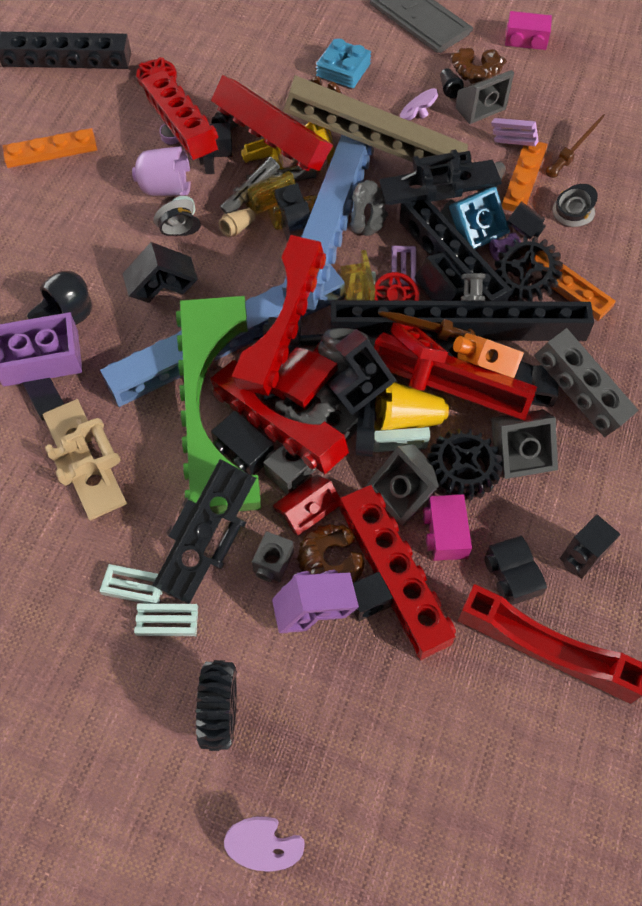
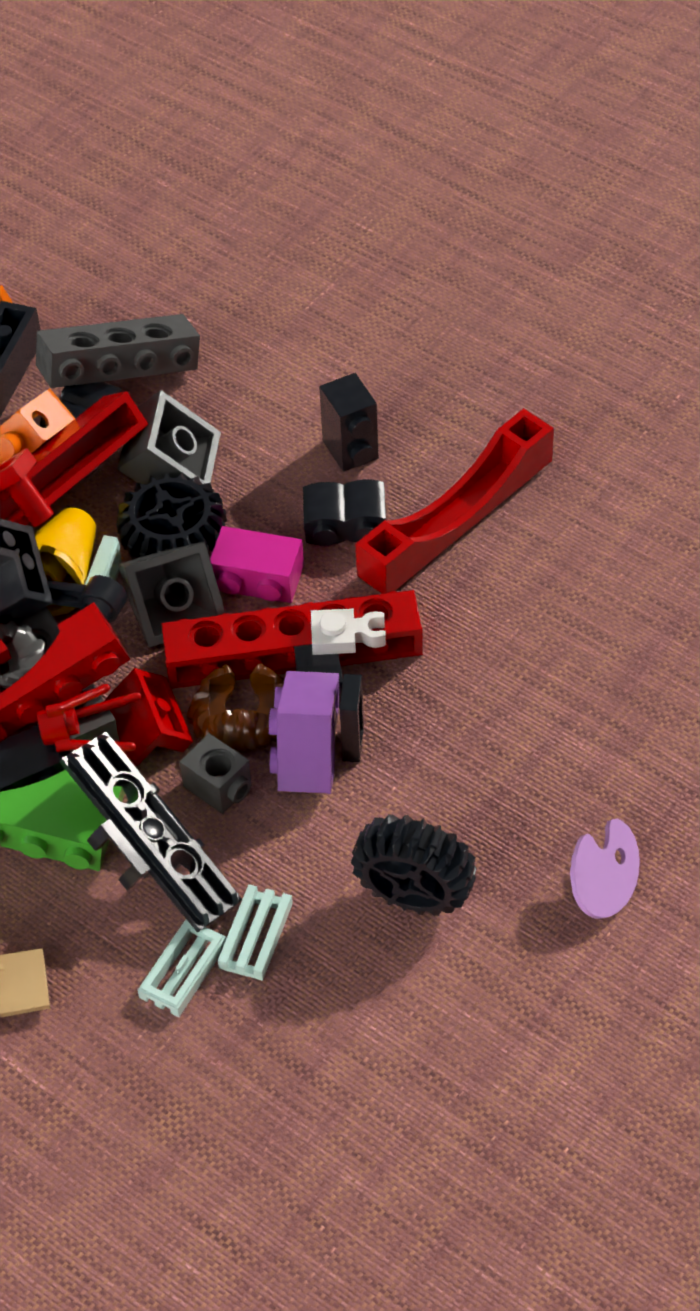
camera: 70 degrees left, 10 degrees down
(267, 454) = (61, 719): none -> red plant
(331, 627) = (352, 718): none -> black tile
(398, 597) = (338, 631): none -> white plate

